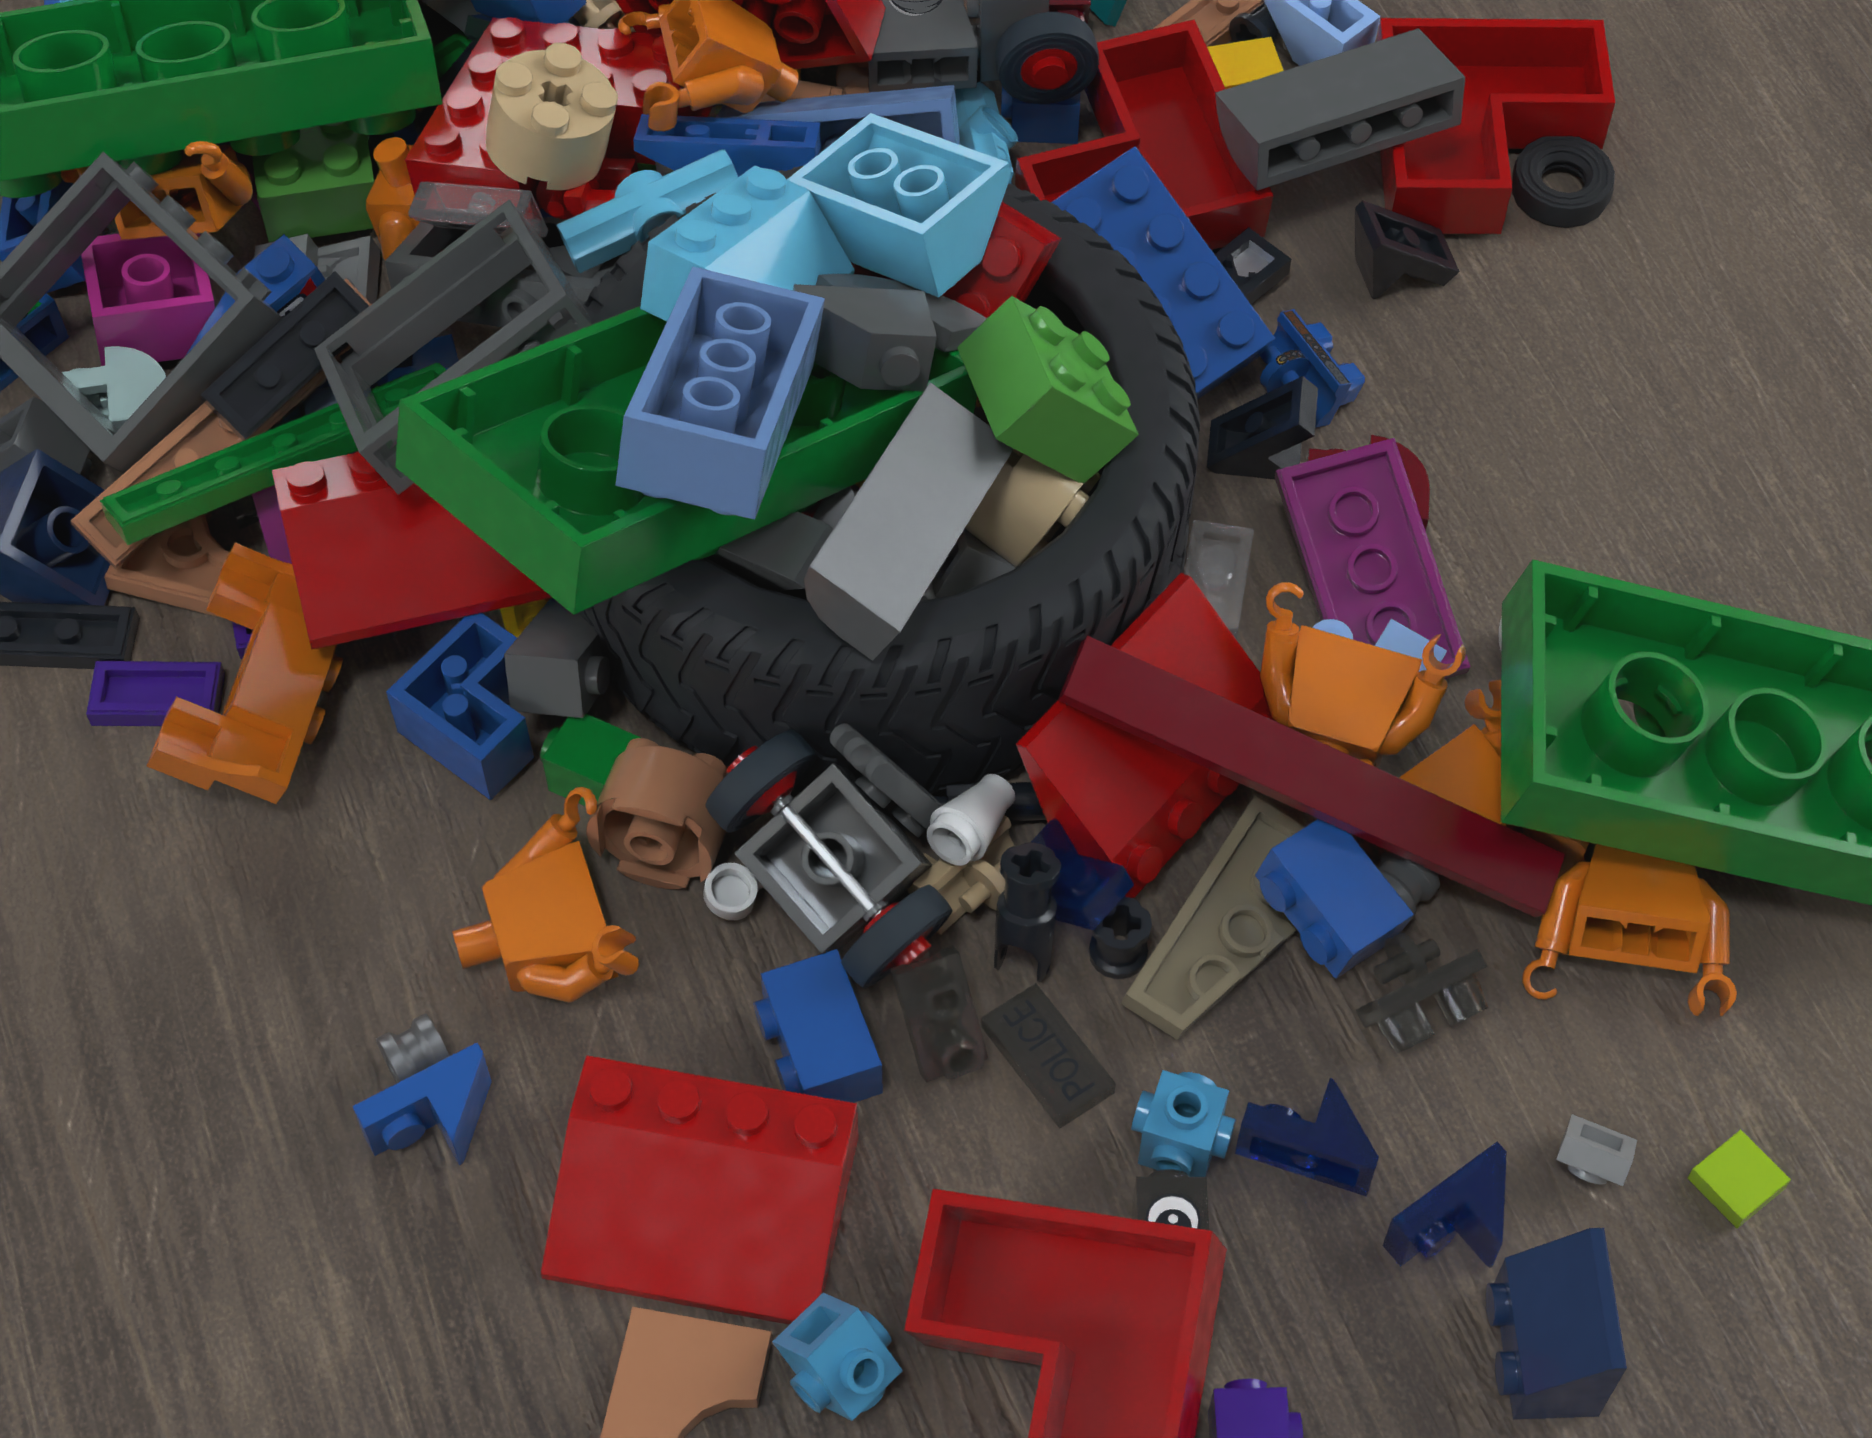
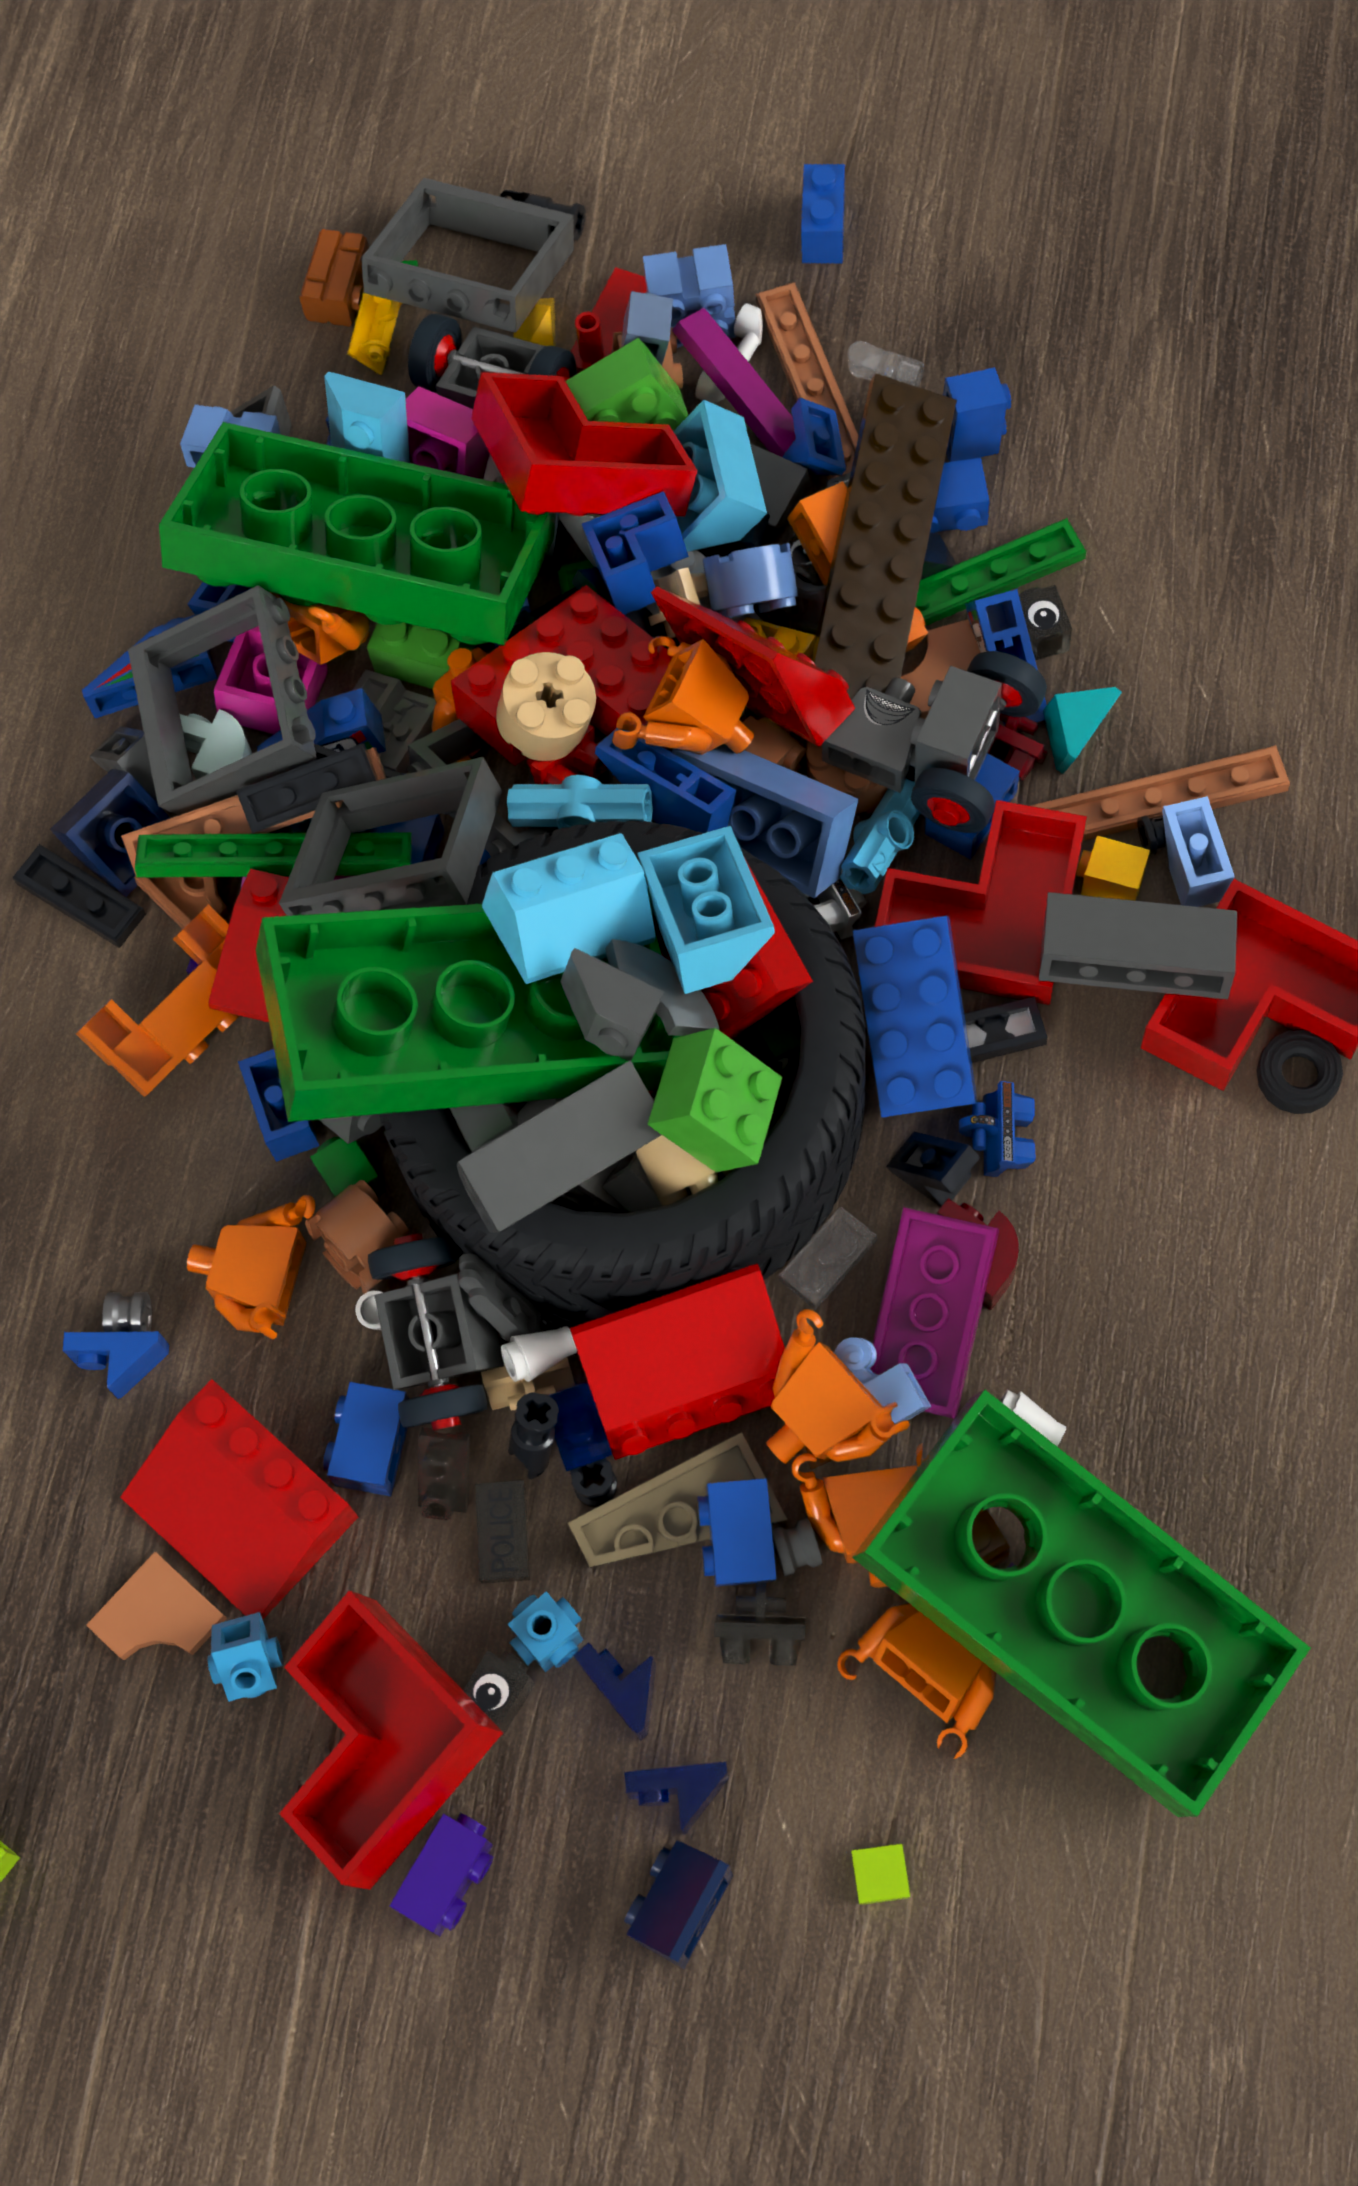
camera: 40 degrees right, 10 degrees up
(144, 690) = (123, 975): dark purple tile -> none
(466, 205) = (477, 741): clear slope -> none
(720, 393) = (459, 1016): medium blue brick -> none
(1311, 776) = (754, 1447): dark red tile -> none
(1395, 245) = (1132, 1069): black slope -> none
(1596, 1152) = (796, 1801): light grey plate -> none

